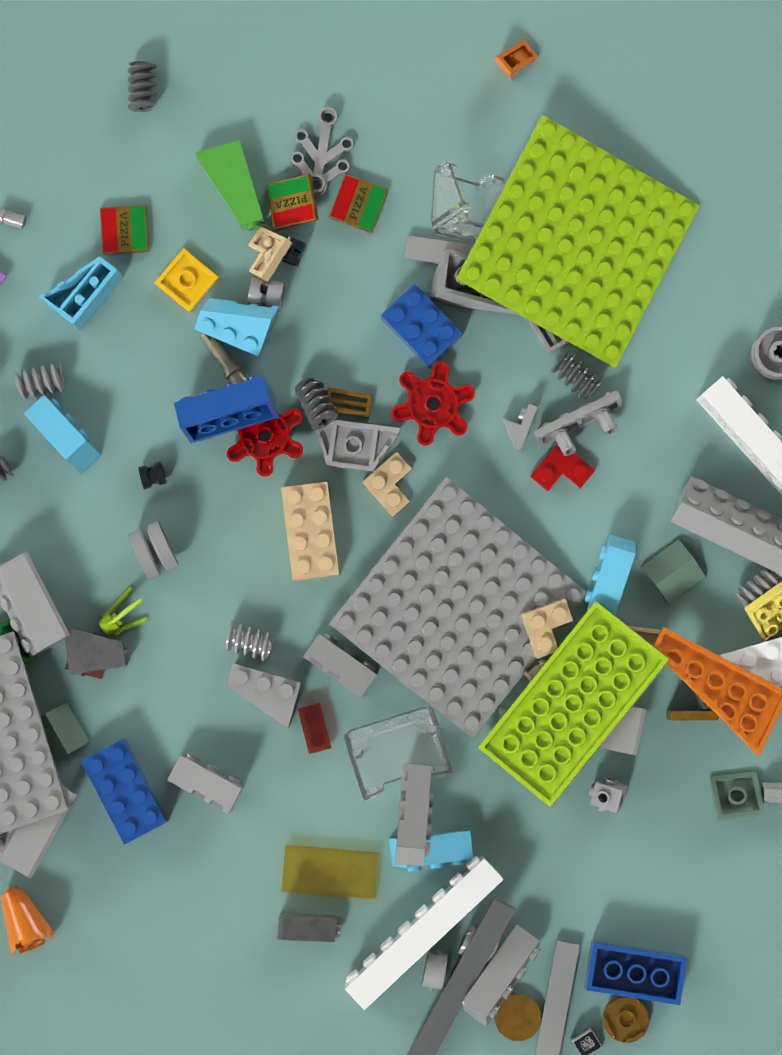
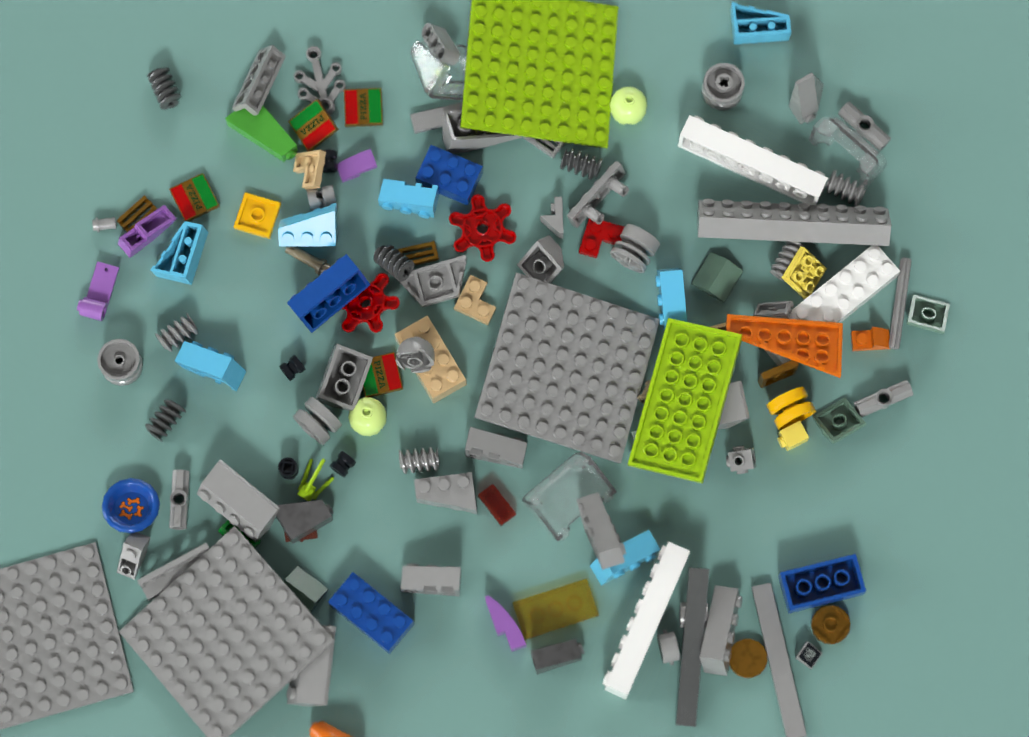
camera: 20 degrees left, 10 degrees down
(46, 215) = (128, 213): none -> pearl gold tile
(54, 246) = (146, 231): none -> medium lavender slope
(103, 591) = (288, 468): none -> black wheel
(163, 609) = (342, 464): none -> black wheel
(204, 513) = (343, 378): none -> light grey slope
(213, 565) = (368, 416): none -> yellowish green cylinder
(247, 524) = (382, 376): none -> tile
(252, 124) = (259, 80): none -> light grey fence
(266, 866) = (505, 624): none -> medium lavender slope
(293, 524) = (416, 355): none -> light grey cylinder
(322, 269) = (355, 165): none -> medium lavender slope
(364, 334) = (409, 198): none -> medium azure wedge
(475, 168) = (440, 44): none -> light grey beam
(484, 472) = (543, 260): none -> light grey slope
(540, 624) = (633, 354): tan plate -> none
(594, 502) = (635, 248): none -> light grey wheel
(660, 329) = (628, 105): none -> yellowish green cylinder
(677, 791) = (792, 436): none -> light yellow brick
(688, 759) = (791, 407): none -> yellow wheel
(716, 643) = (774, 309): none -> light grey tile

